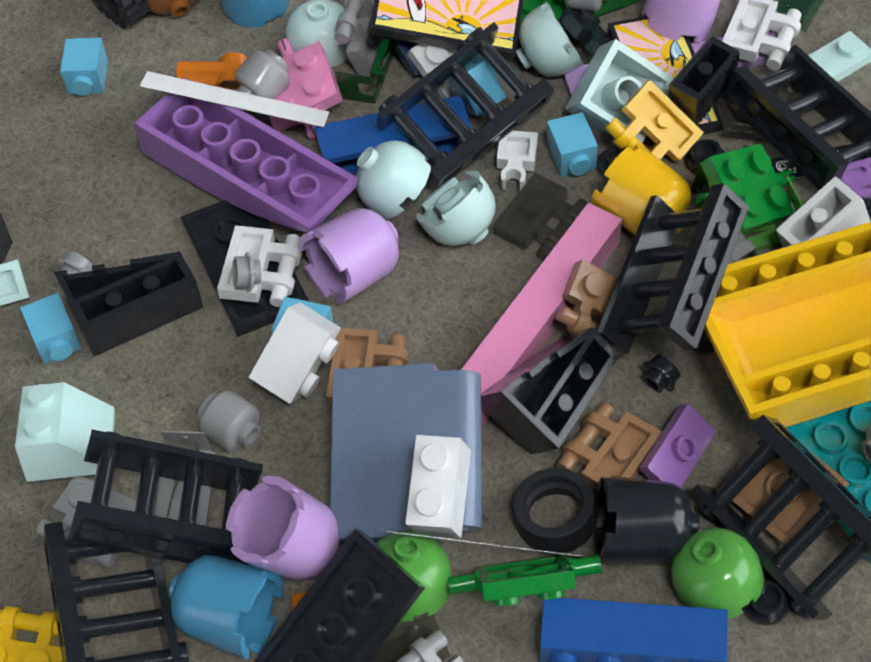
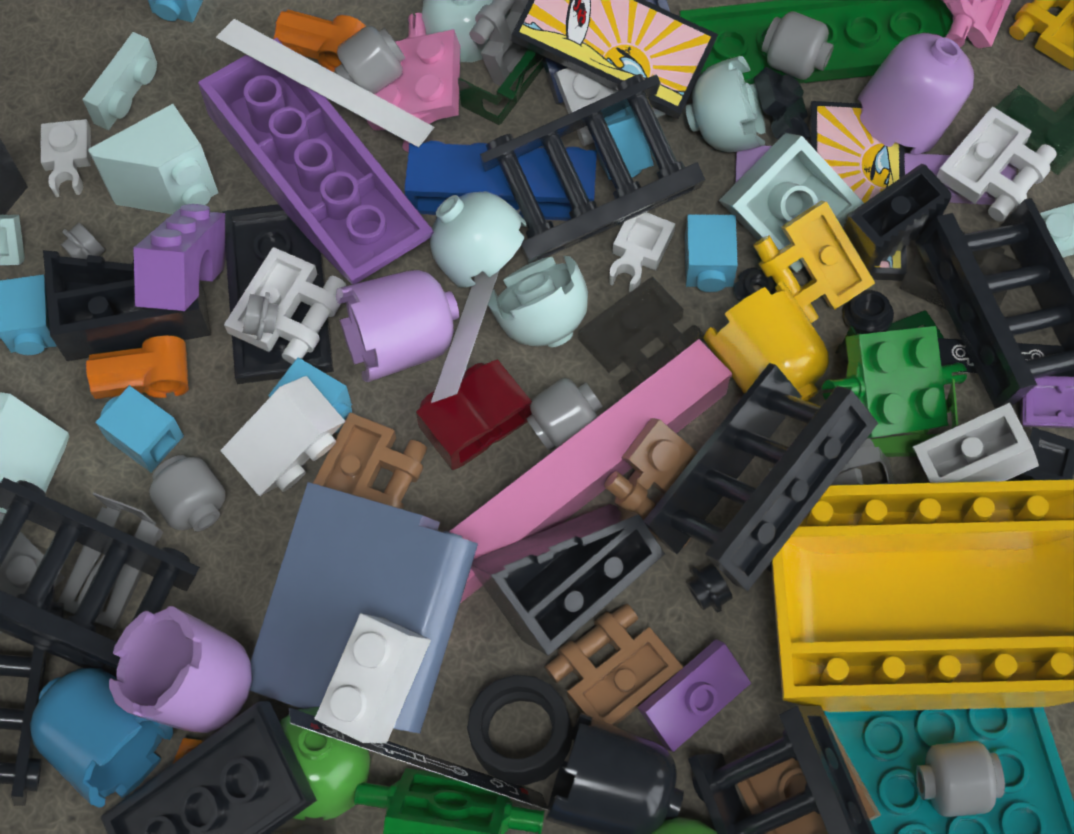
camera: 15 degrees right, 10 degrees up
(35, 208) = (63, 150): none -> white plate
(62, 149) = (120, 81): none -> light aqua plate
(120, 192) = (155, 164): none -> light aqua slope
(167, 247) = (177, 256): none -> medium lavender arch
(168, 340) = (152, 370): none -> orange piece
(173, 384) = (139, 428): none -> medium azure brick
(409, 247) = (465, 336): none -> white sticker
(434, 303) = (480, 414): none -> dark red brick
(502, 282) = (562, 411): none -> light grey head

